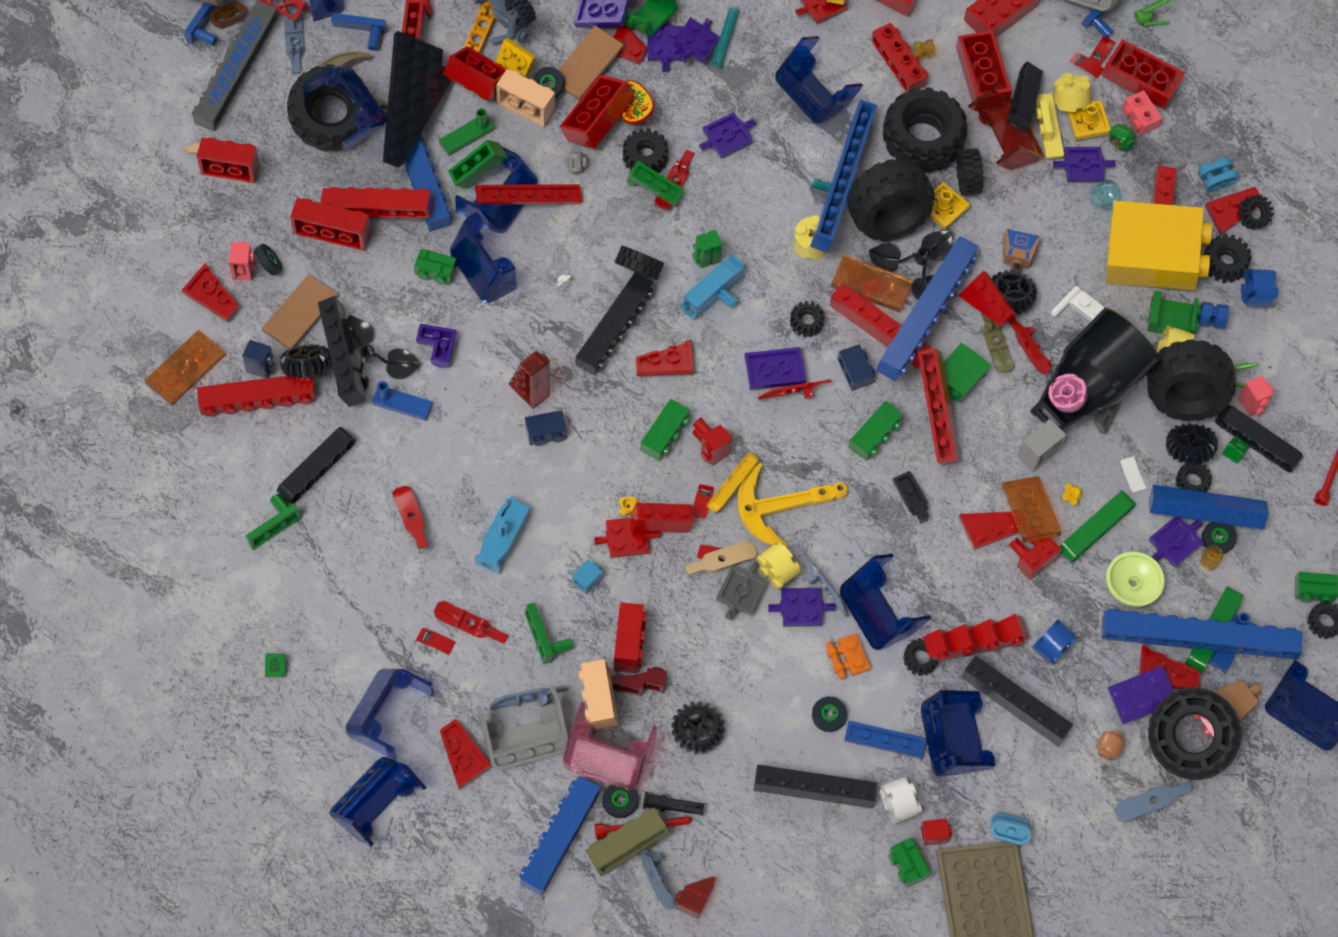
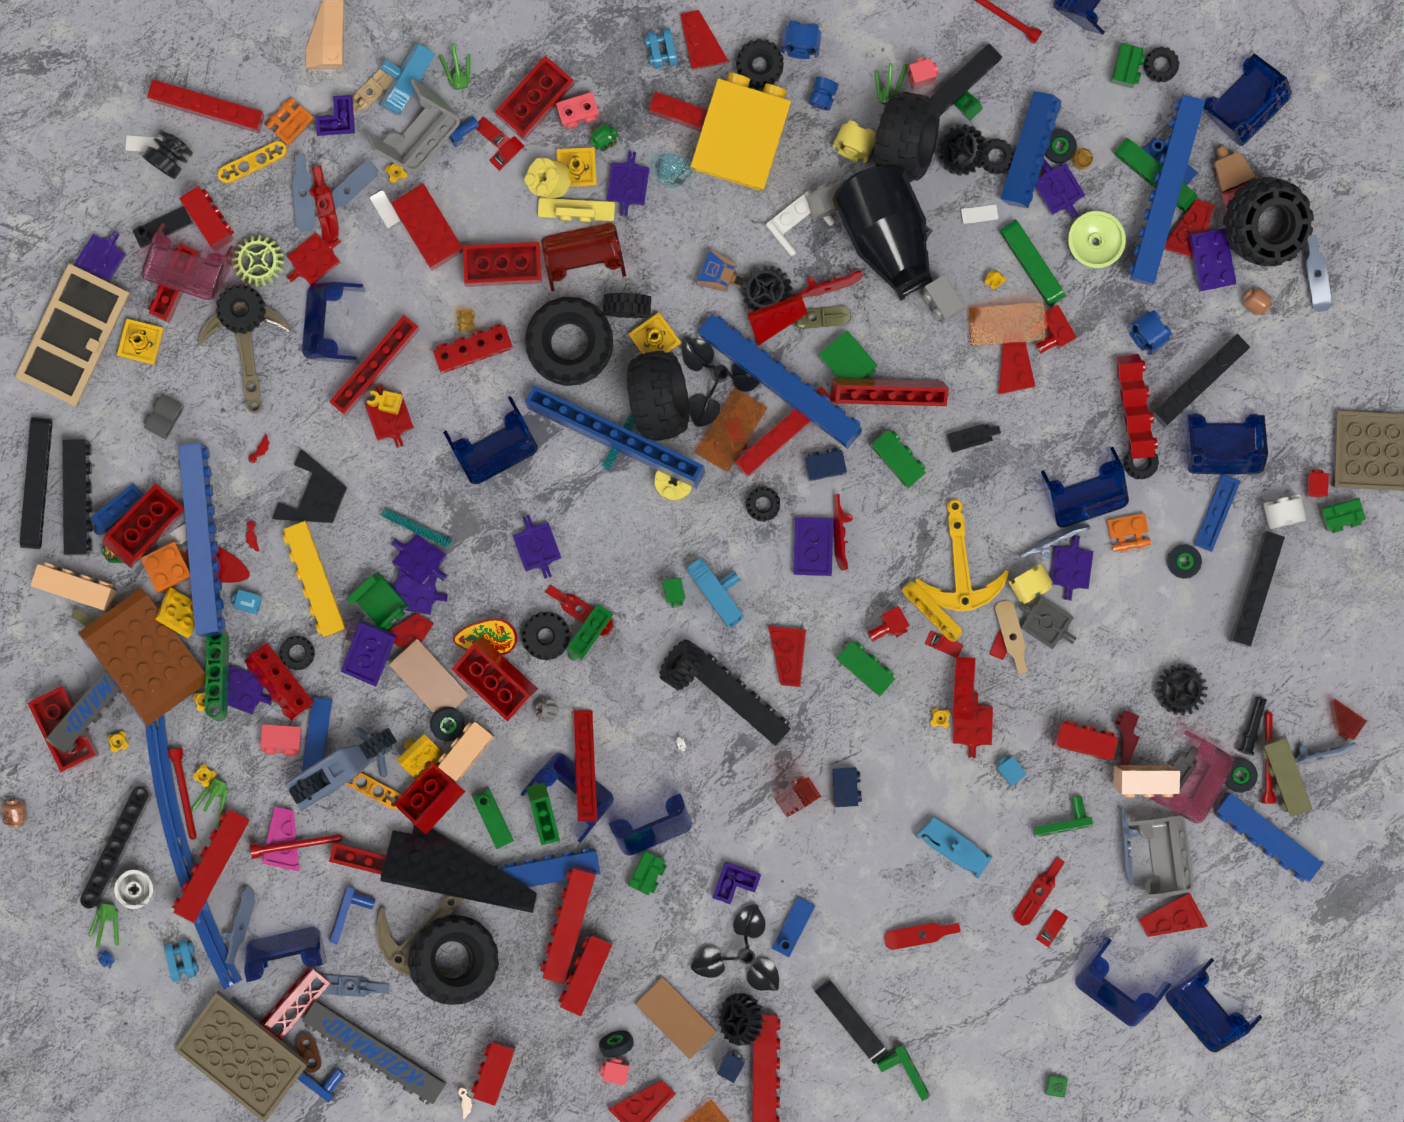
camera: 80 degrees left, 20 degrees up
(341, 351) = (735, 981): black brick -> none
(371, 114) = (441, 939): clear blue windscreen -> none
(1010, 828) = (1326, 413): dark azure brick -> none
(1025, 96) = (546, 228): black beam -> none
(1068, 393) = (898, 261): bright pink cylinder -> none
(1173, 314) = (815, 133): green panel -> none
(1265, 211) = (707, 28): black tyre -> none

